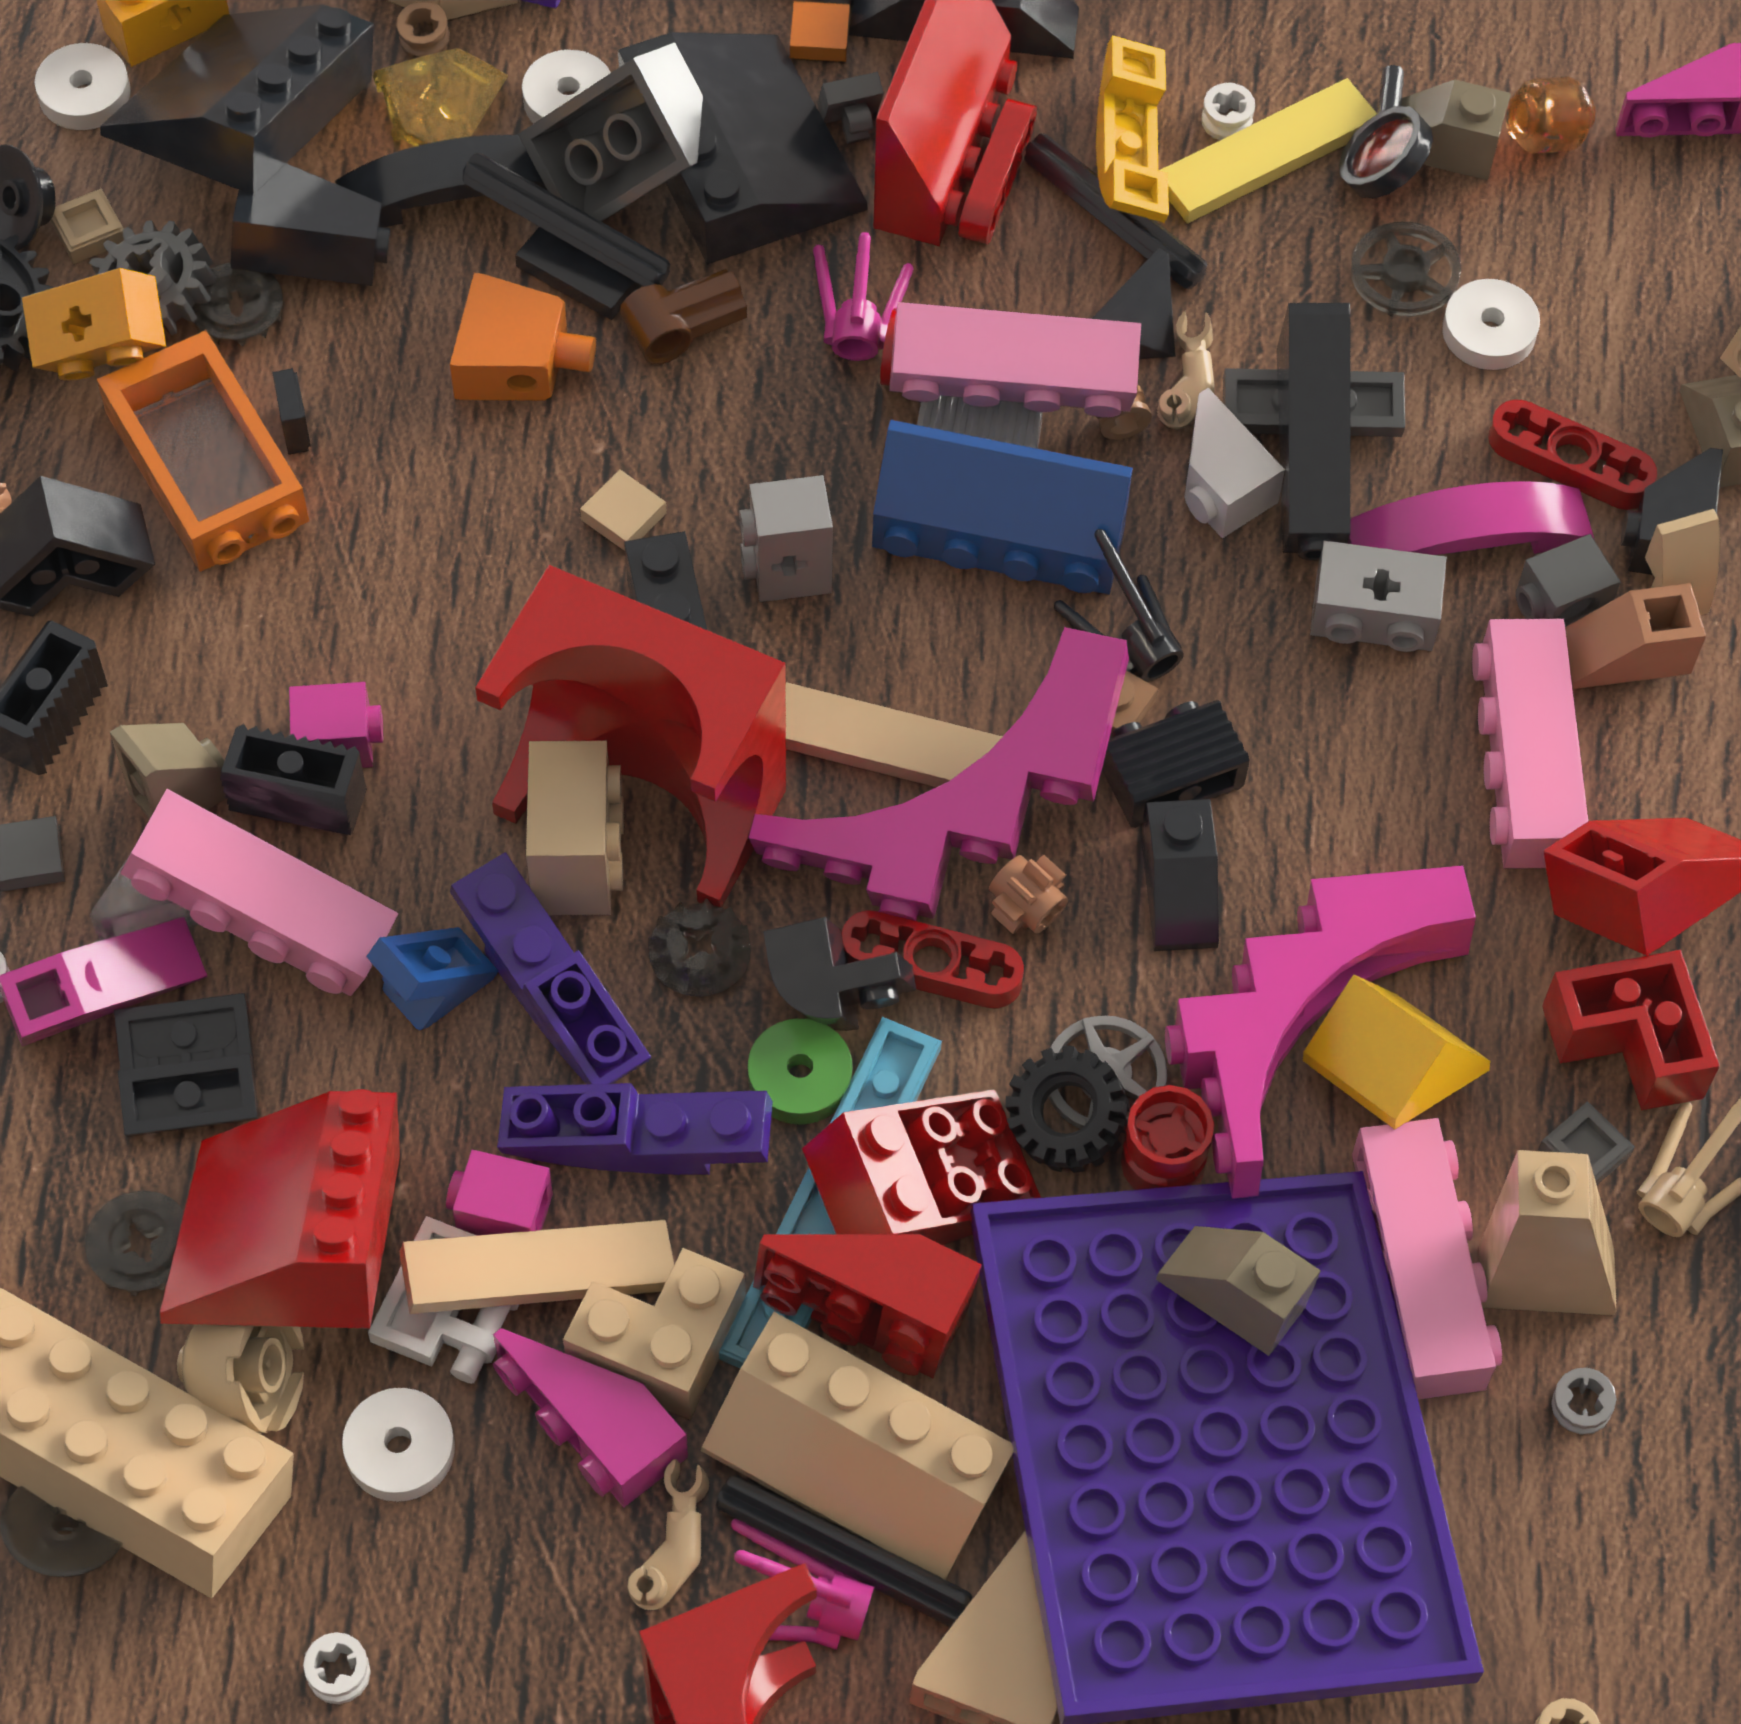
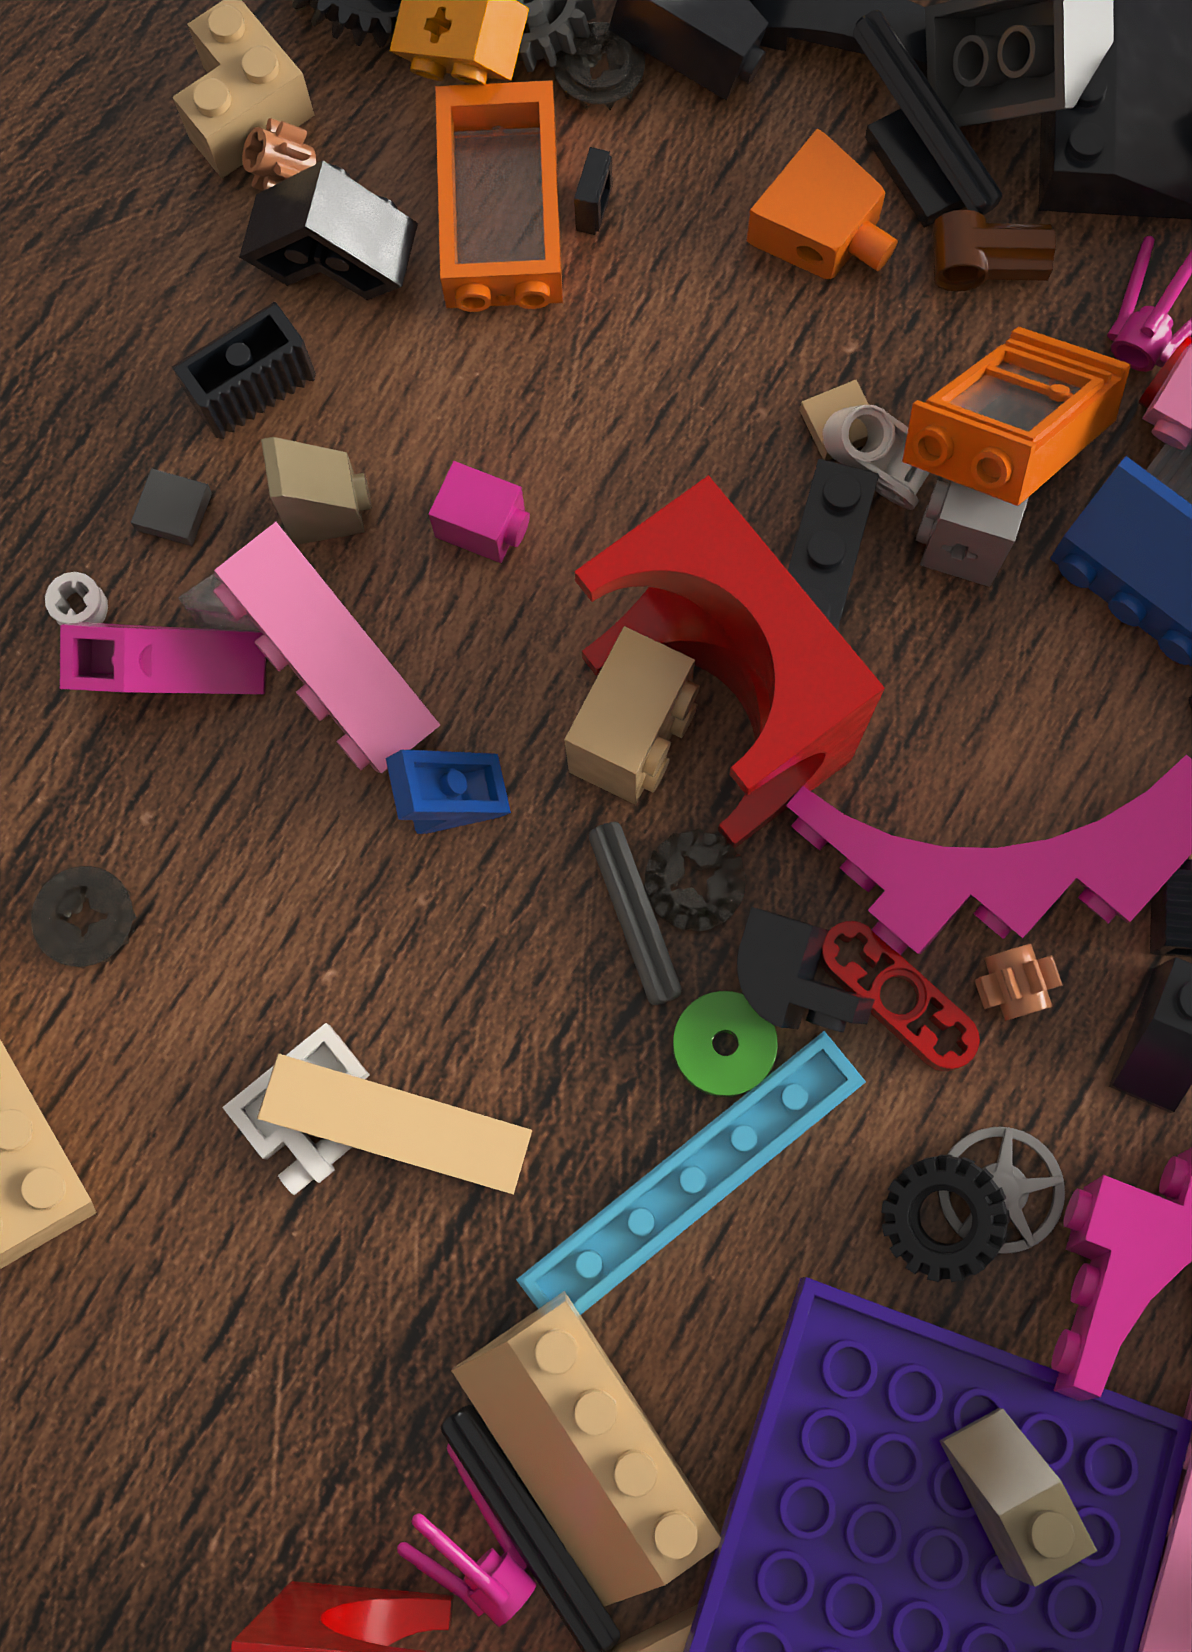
camera: 35 degrees right, 15 degrees up
(186, 1064) = (203, 771): black slope -> none
(244, 1372) = (101, 1087): tan cylinder -> none
(289, 1217) = (194, 980): red slope -> none
(293, 780) = (415, 550): black brick -> none
(328, 1649) = (49, 1421): white bush -> none
(402, 1474) = (174, 1210): white piece -> none
(499, 1195) = (396, 1039): dark pink brick -> none
(547, 975) = (546, 847): dark purple slope -> none
(603, 1415) = (382, 1296): dark pink slope -> none
(634, 1132) = (549, 1031): dark purple slope -> none
(660, 1000) = (635, 913): none -> dark grey axle
(667, 1344) = (465, 1261): tan brick -> none
(680, 507) = (880, 455): none -> white piece
(680, 1553) = (385, 1453): tan arm -> none
(780, 429) = (1016, 415): none -> orange door
(872, 1289) = (694, 1331): red slope -> none
(880, 737) = (969, 761): tan tile -> none
(918, 1166) = (778, 1213): red slope -> none
(1167, 1139) = (1023, 1301): red wheel -> none

